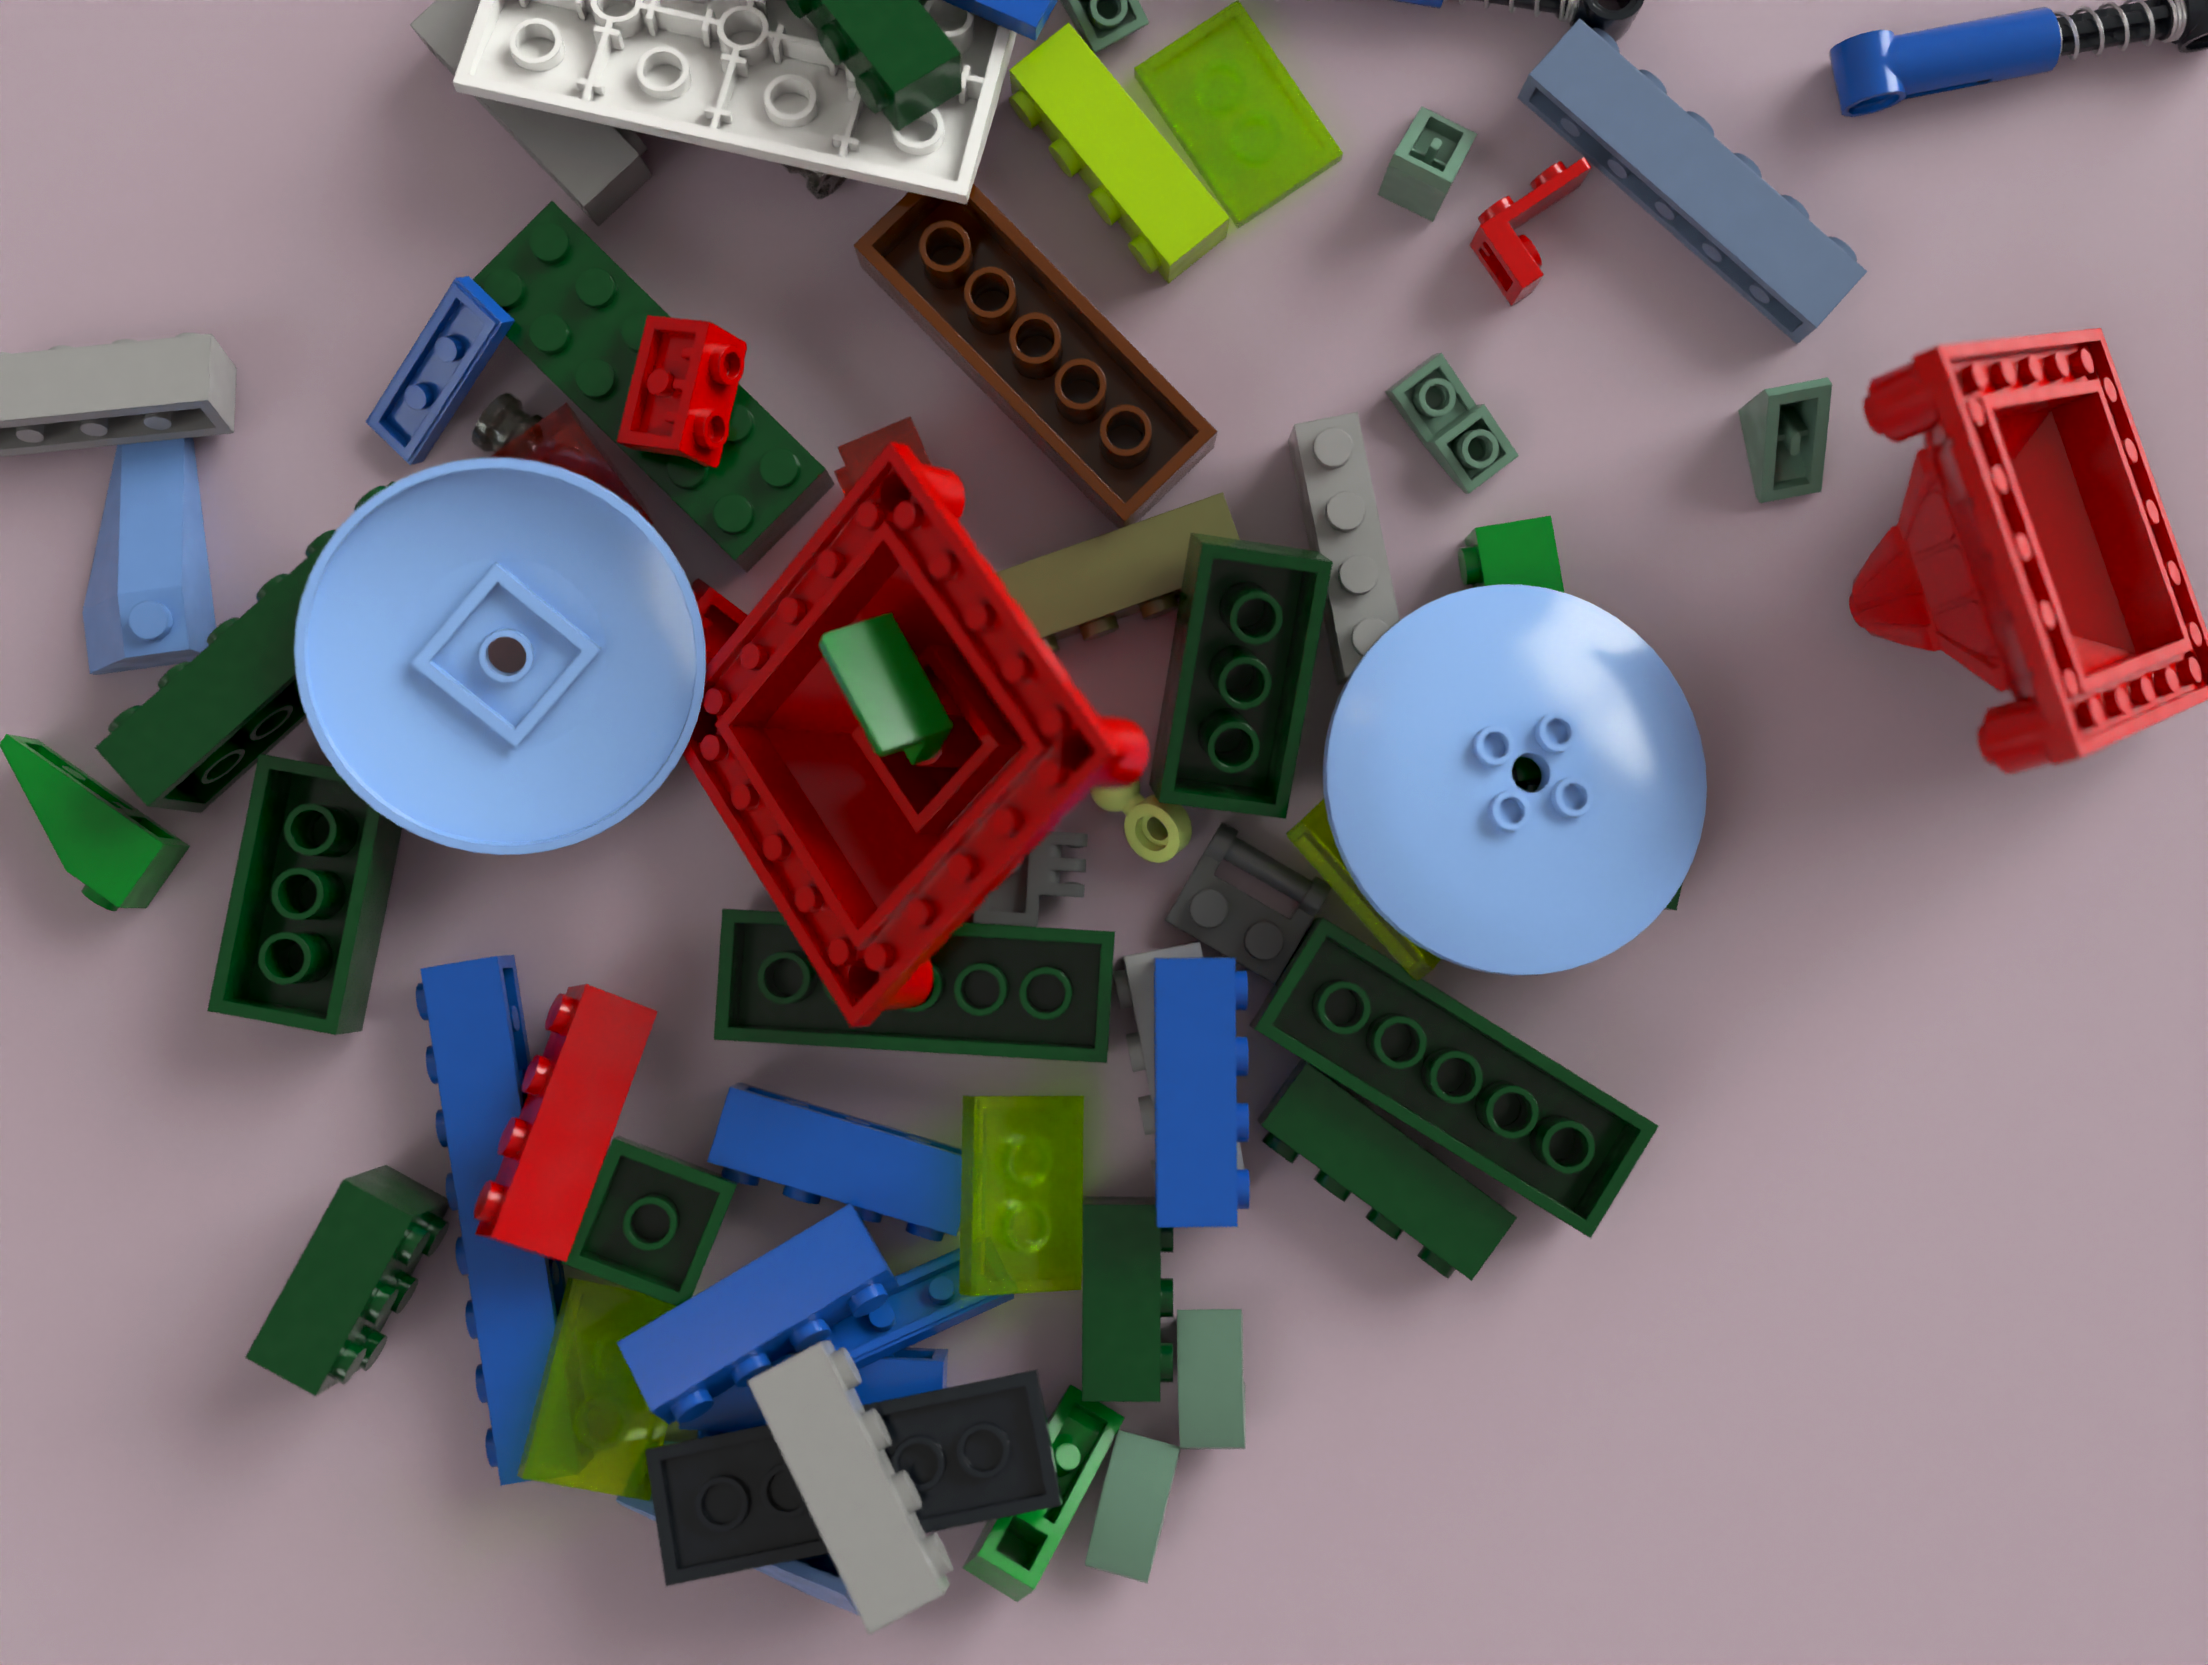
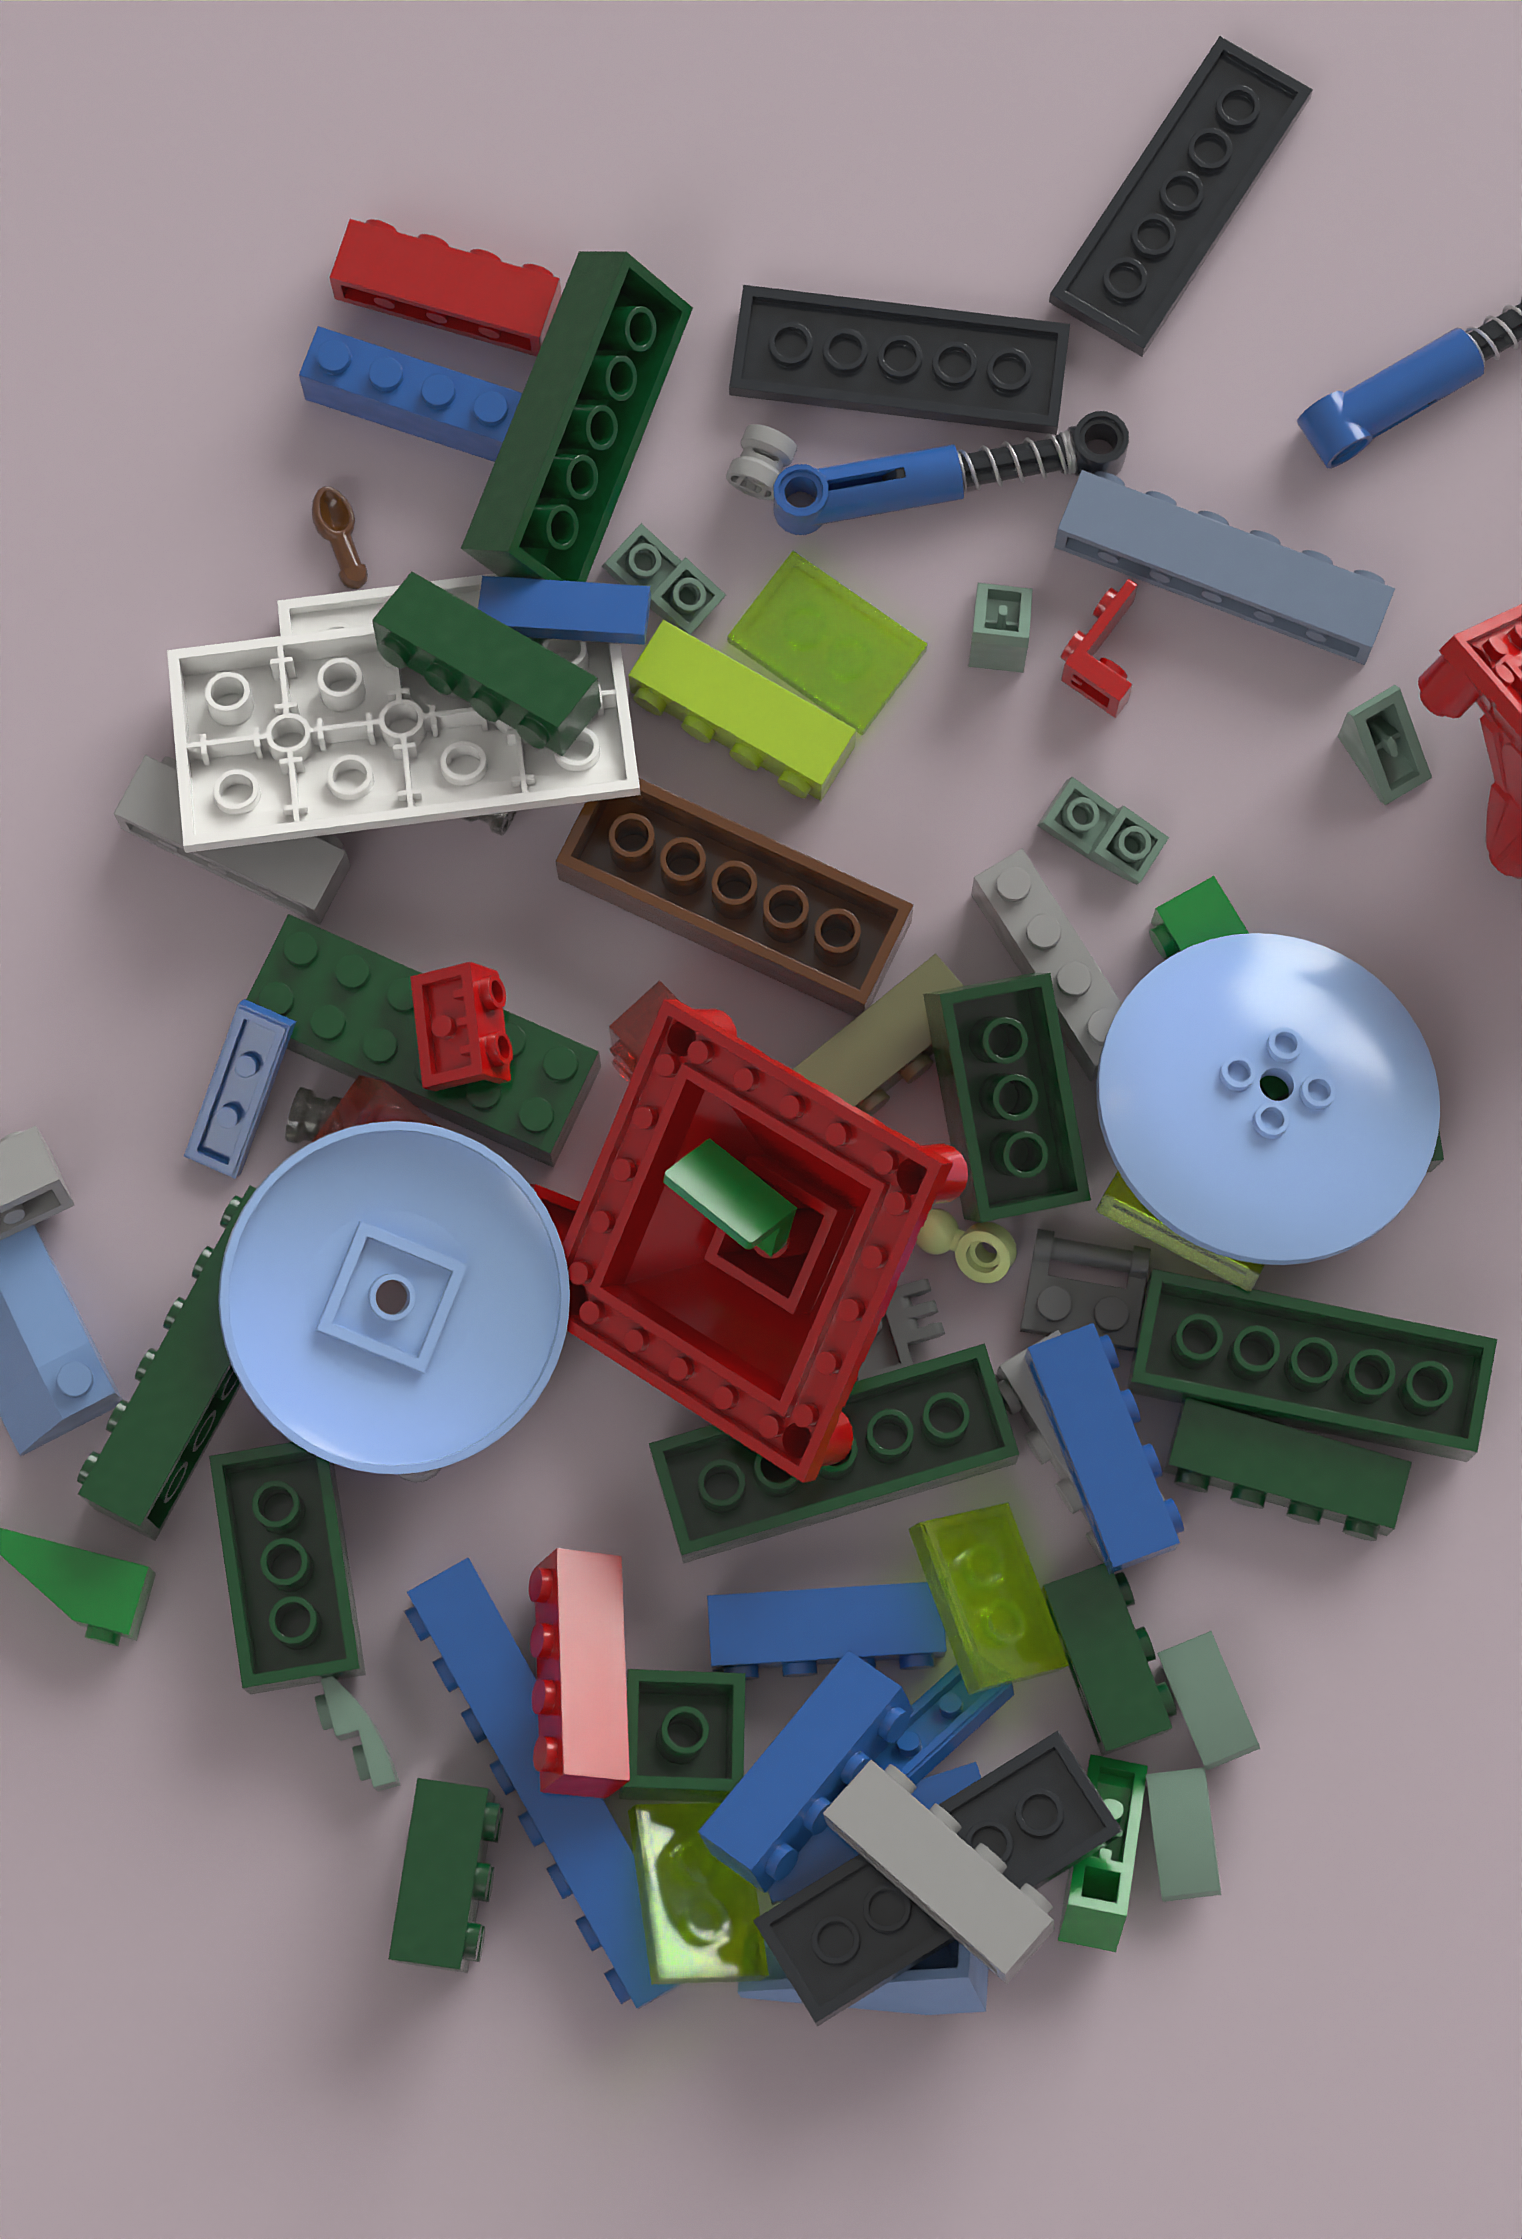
camera: 20 degrees left, 10 degrees down
(325, 1069) = (349, 1719): none -> sand green slope

